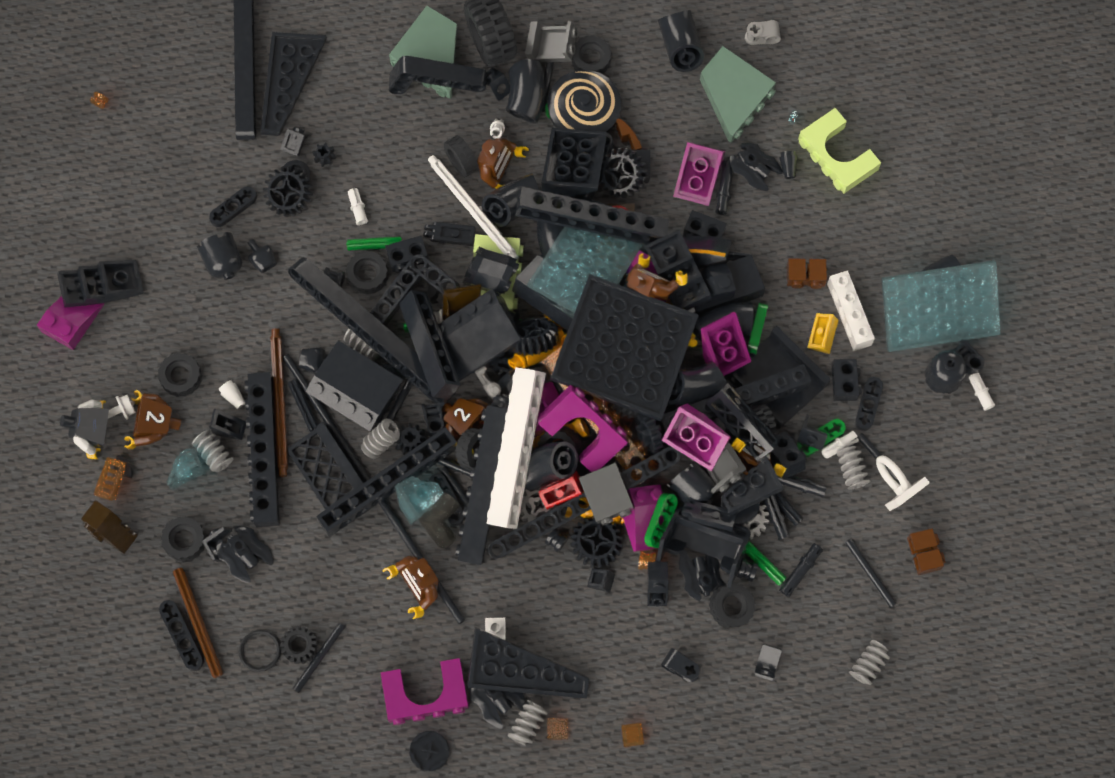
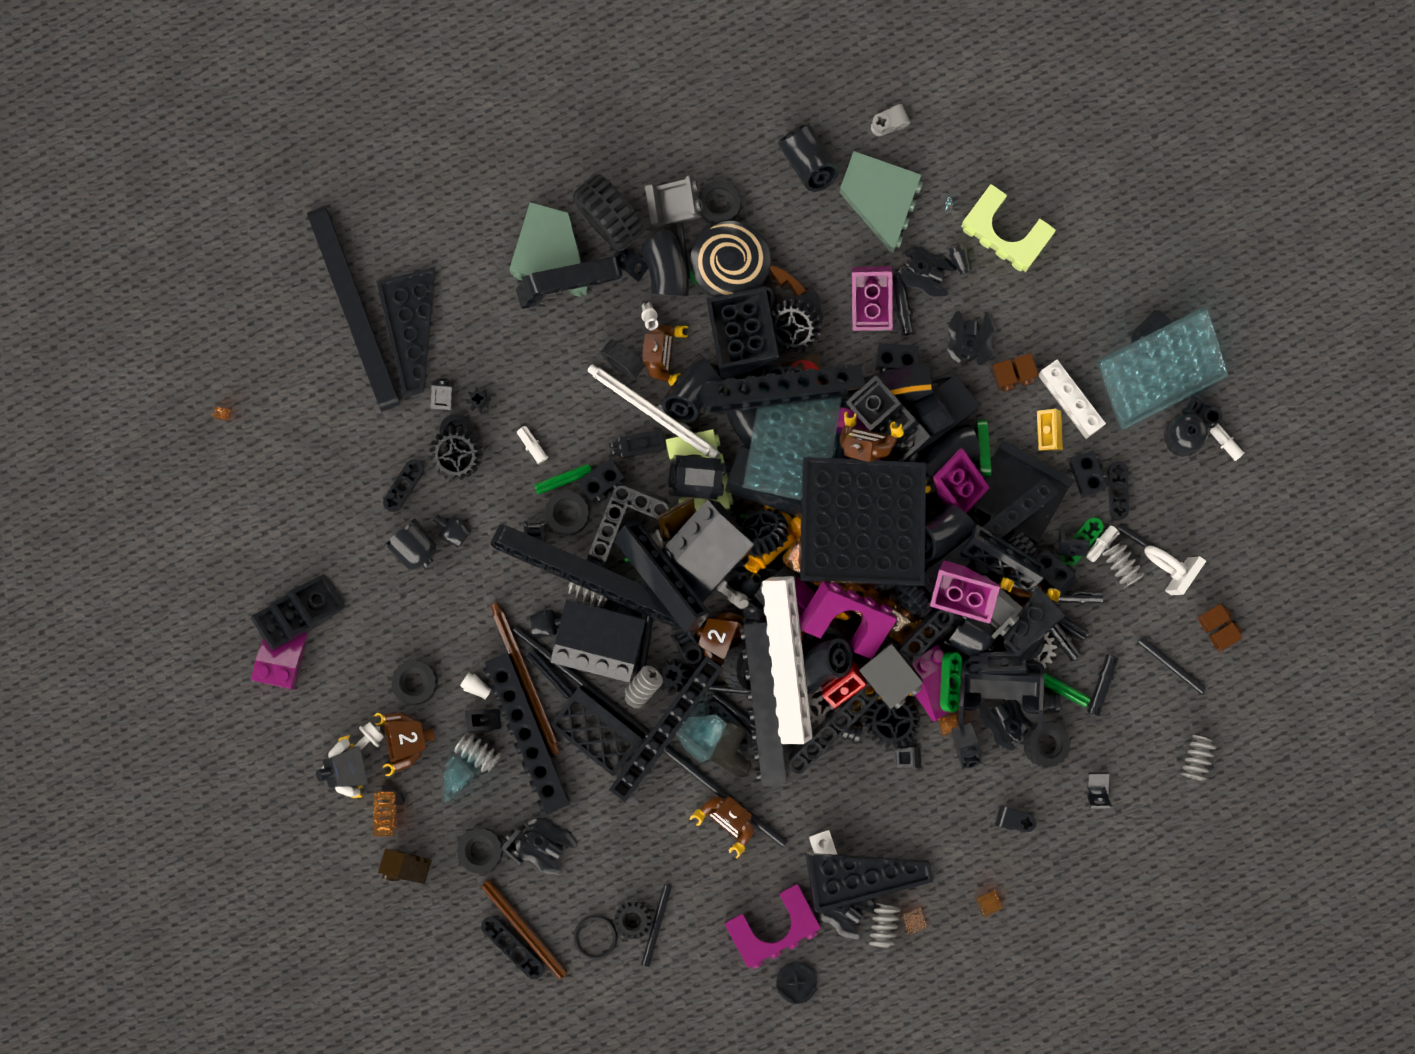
camera: 15 degrees left, 10 degrees up
(776, 235) = (970, 341): none -> black piece

